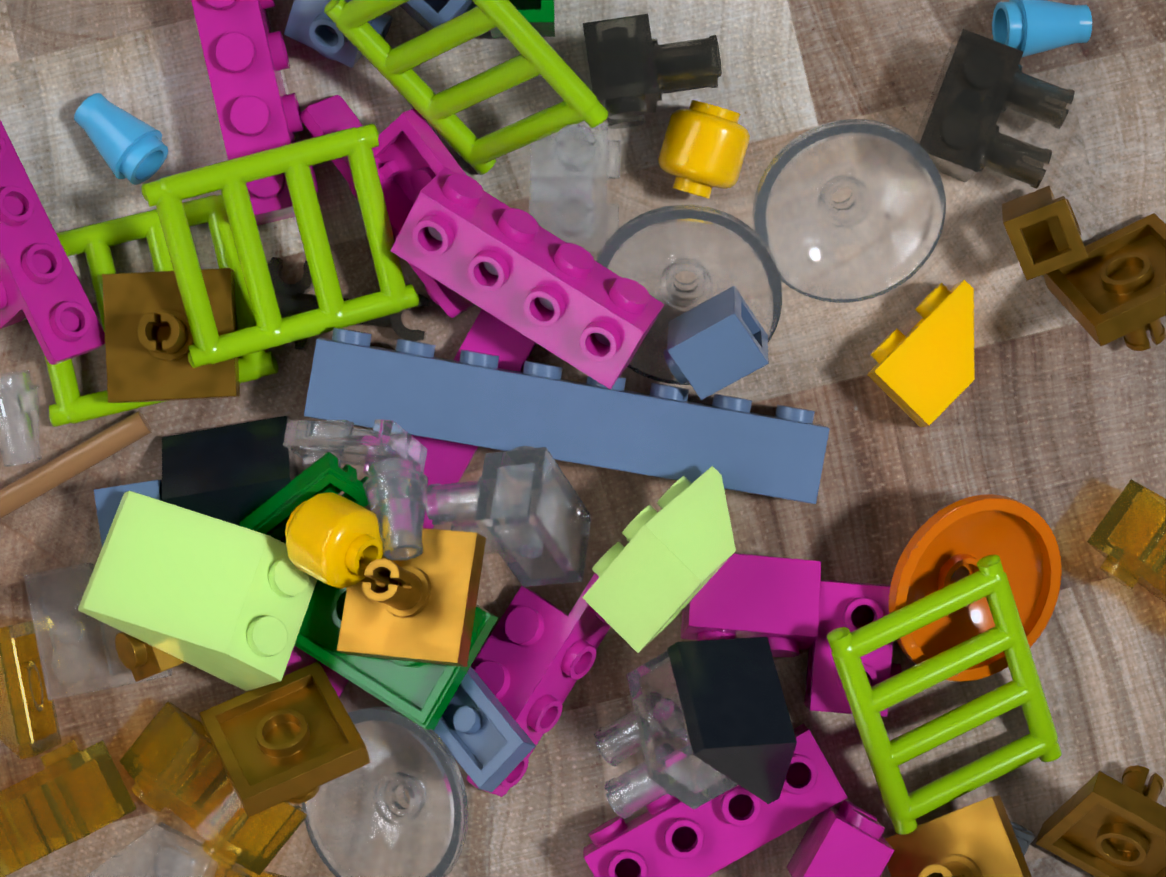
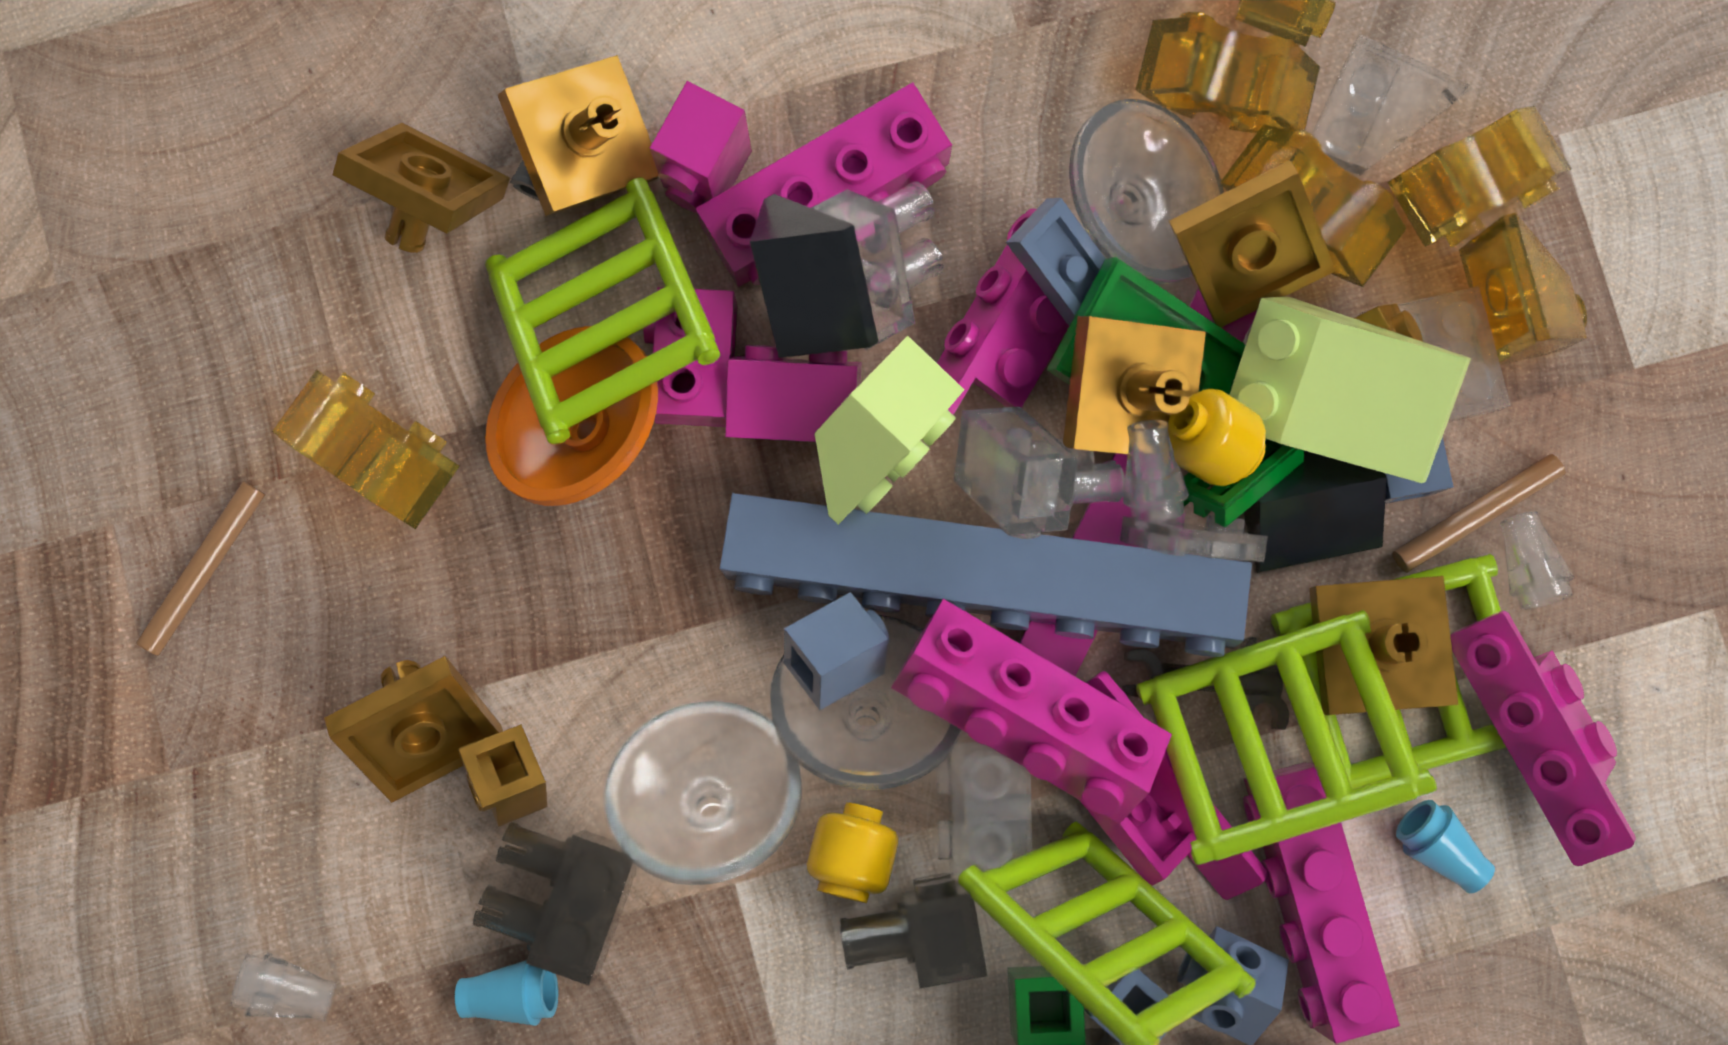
camera: 175 degrees right, 5 degrees down
(934, 359) = (614, 646): yellow slope -> none

